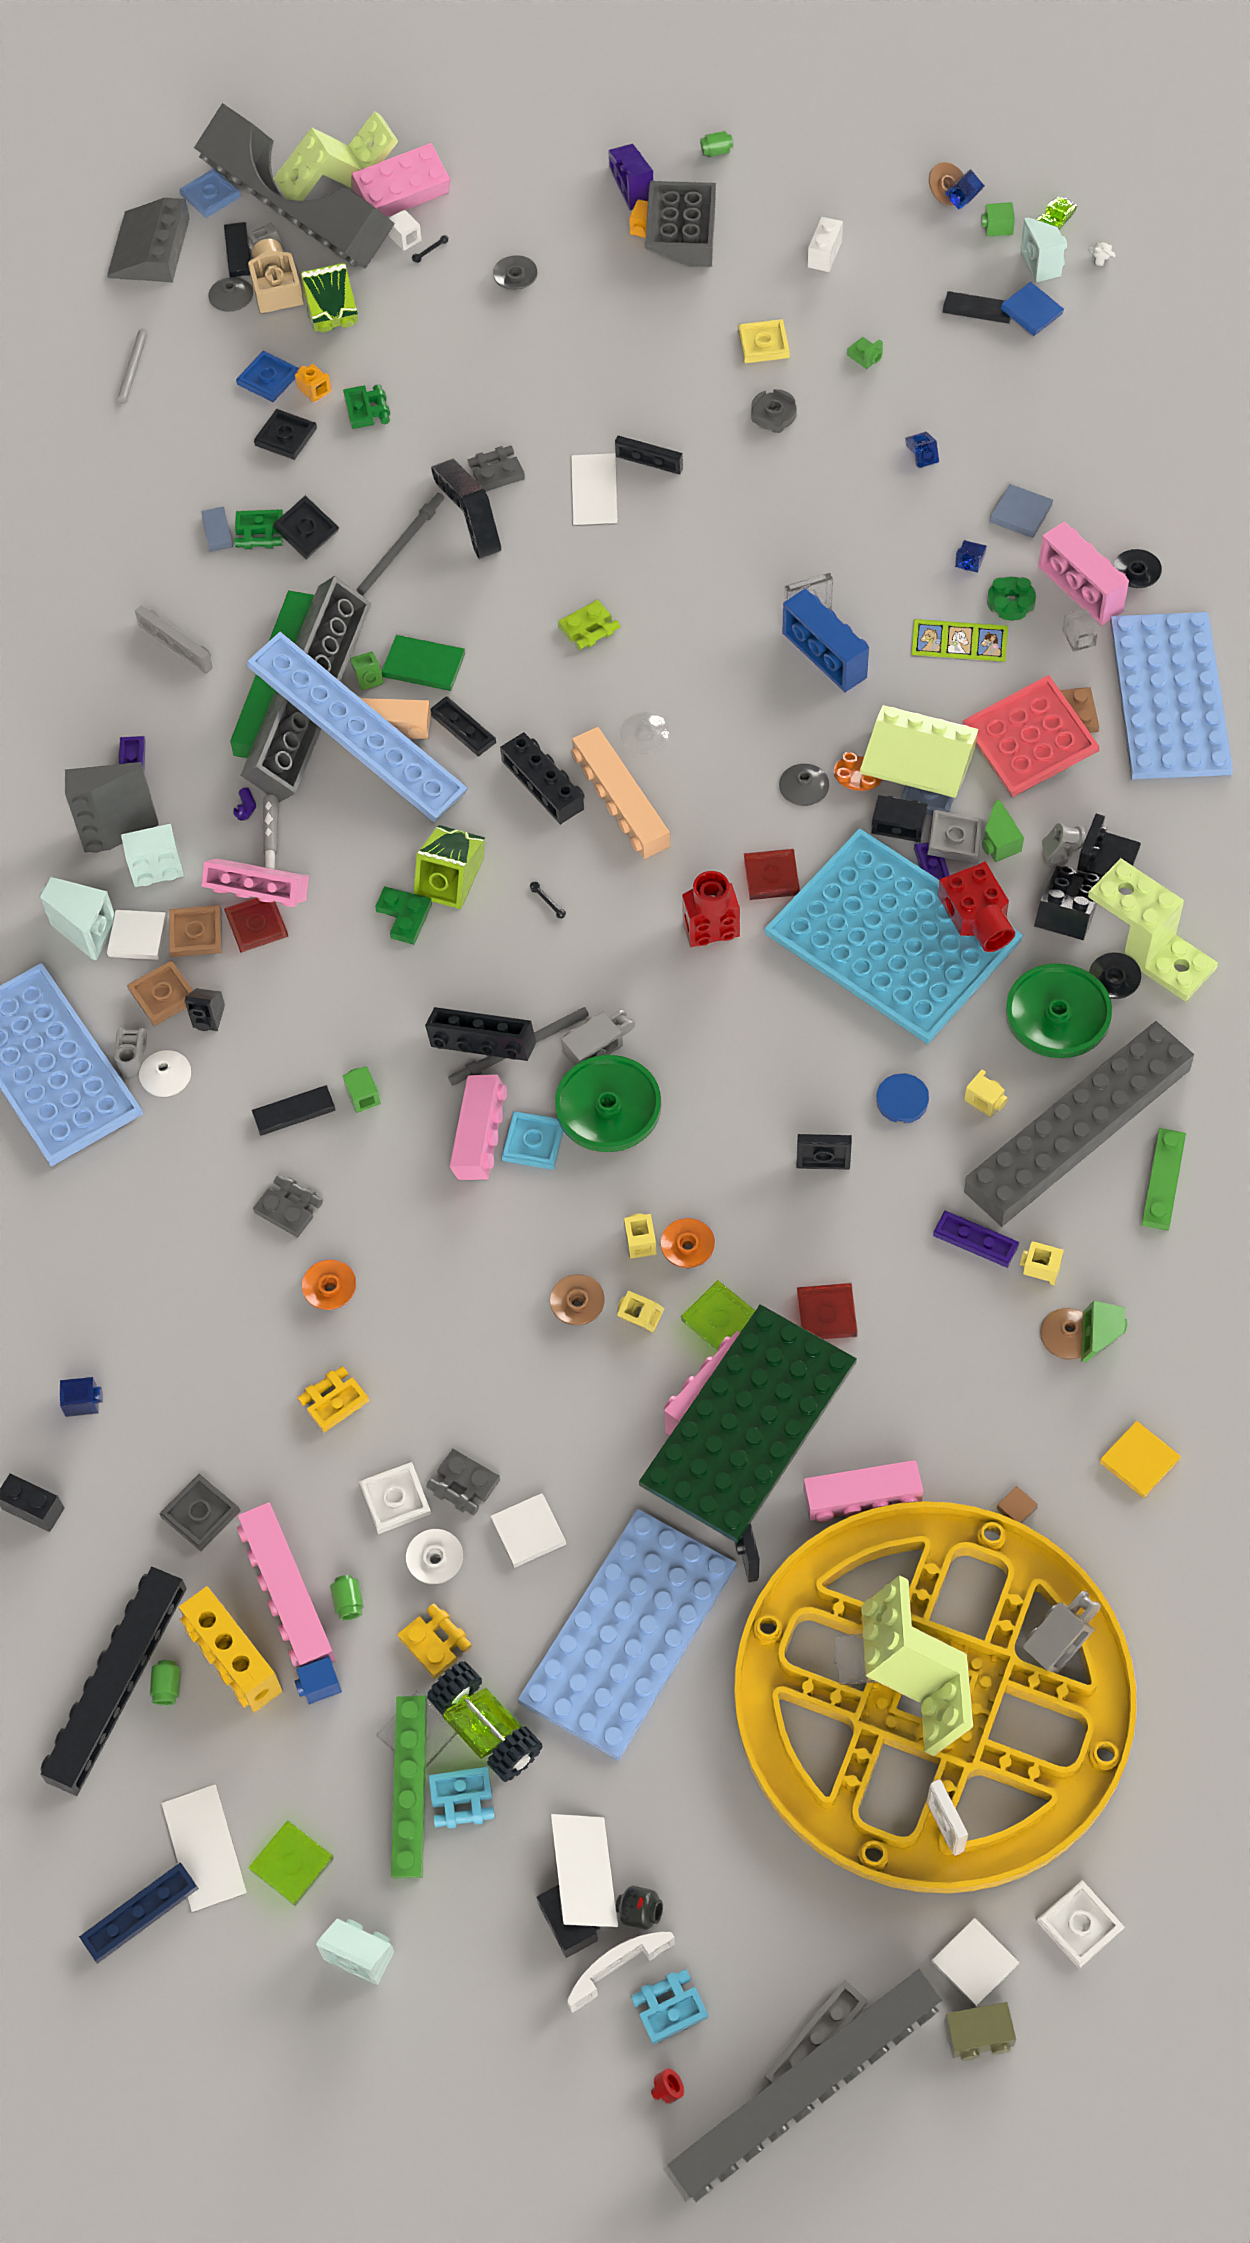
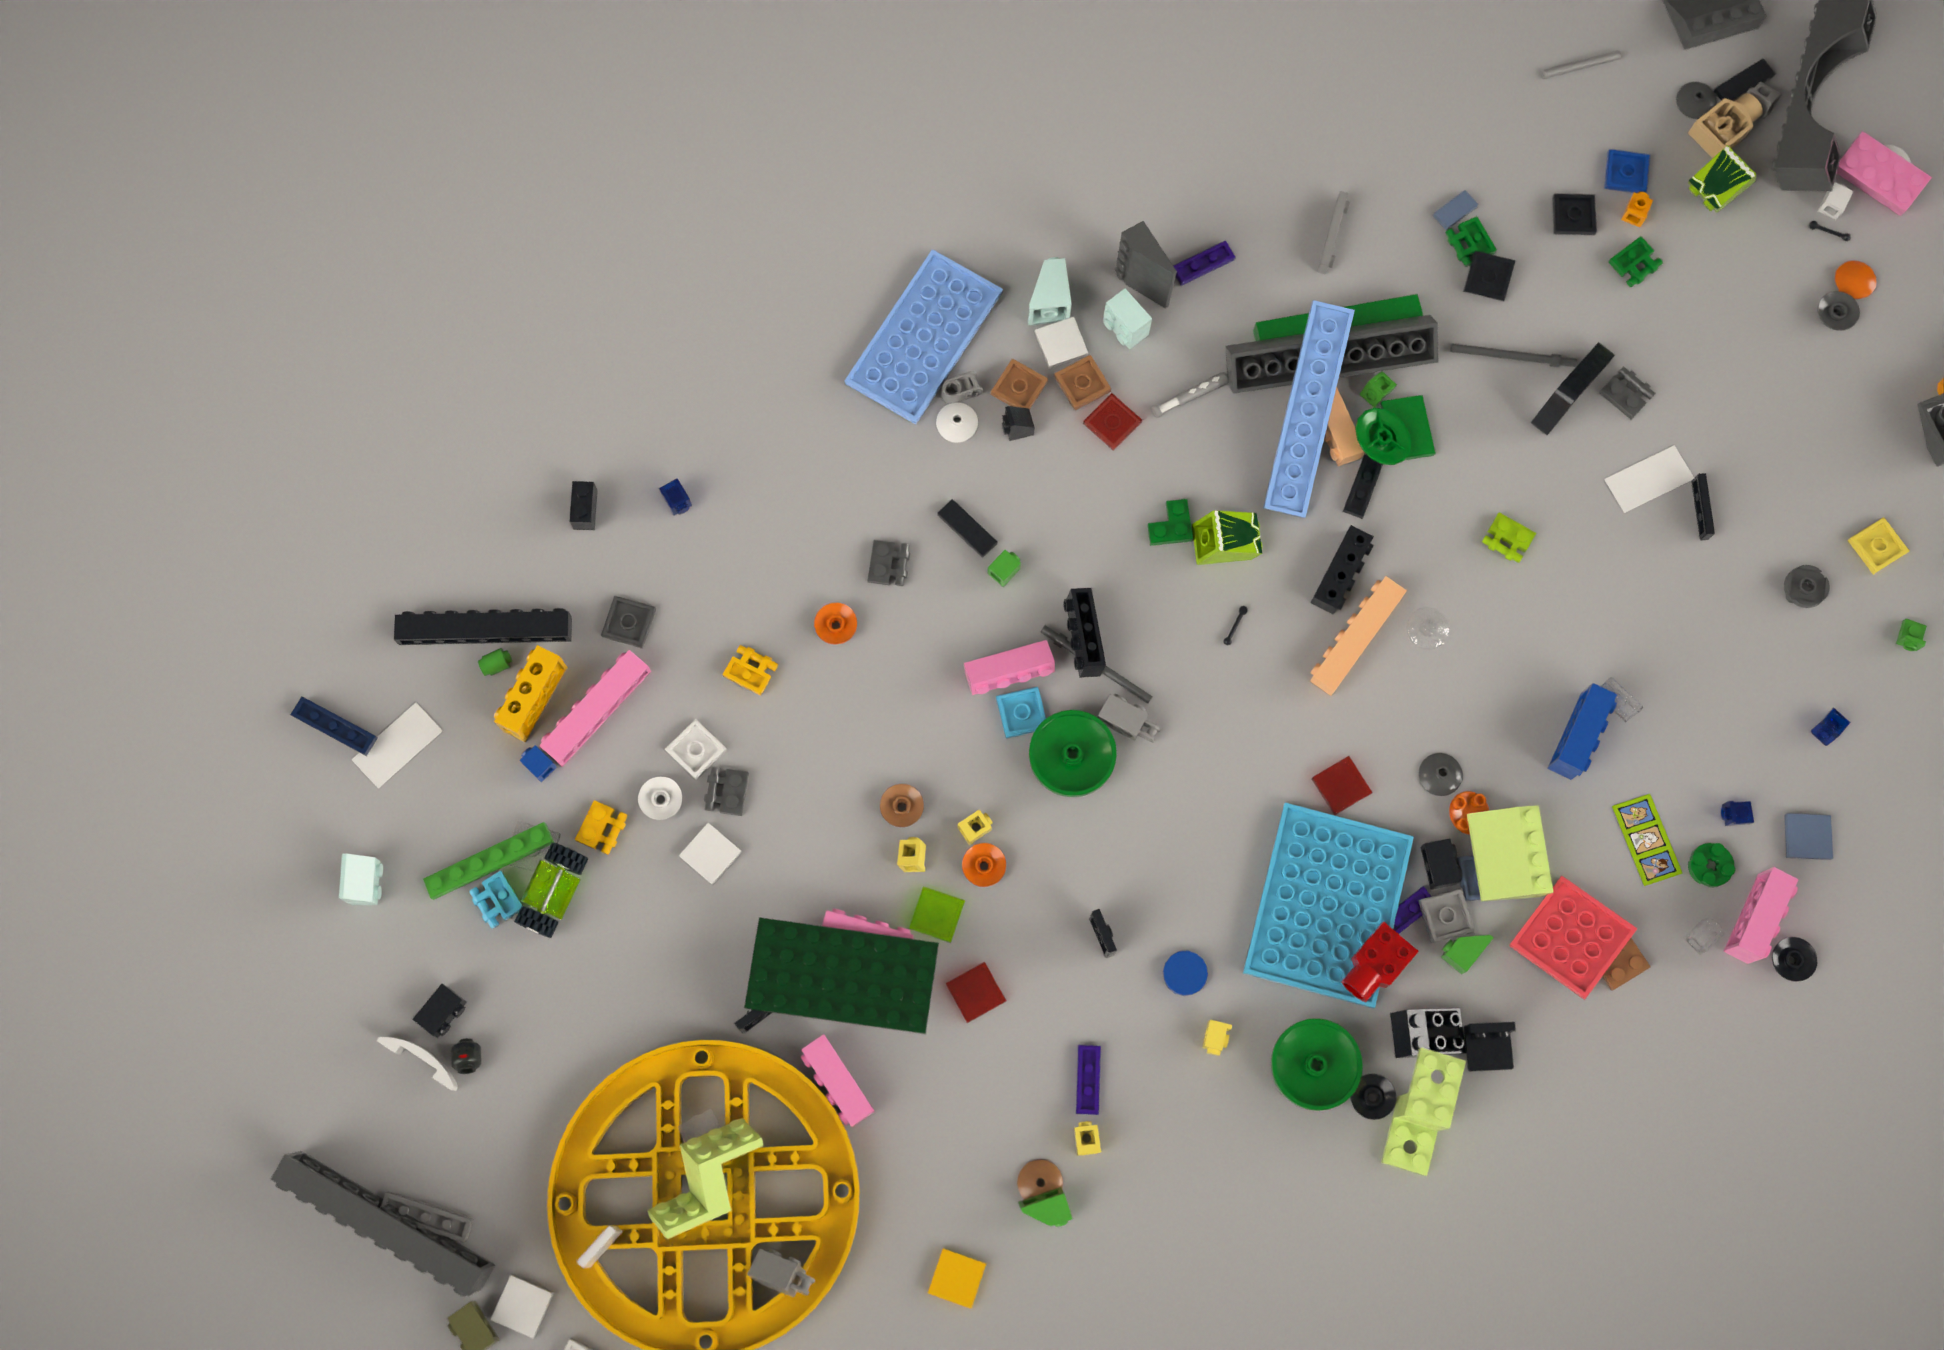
camera: 60 degrees right, 15 degrees up
(210, 193) = (1790, 29): medium blue tile -> none
(247, 807) = (1210, 364): dark purple arm -> none
(255, 881) = (1140, 404): bright pink brick -> none
(291, 1863) = (408, 807): clear neon green tile -> none
(326, 156) = (1874, 109): yellowish green bracket -> none
(346, 1597) = (605, 753): bright green brick -> none
(423, 679) = (1383, 436): none -> green piece
(490, 249) = (1855, 279): none -> orange dish
(584, 1870) = (475, 1007): white sticker -> none
(627, 1634) = (662, 959): light blue plate -> none
(667, 2086) = (353, 1130): red tile -> none
(674, 2014) = (403, 1112): medium azure plate -> none
(710, 917) = (1273, 755): red brick -> none
(1017, 1505) = (878, 1200): medium nougat tile -> none
(1062, 844) = (1475, 1005): light grey piece -> none
(1078, 1123) = (1224, 1121): dark grey brick -> none
(1164, 1179) = (1207, 1206): bright green plate -> none
(1170, 696) = (1678, 1037): light blue plate -> none

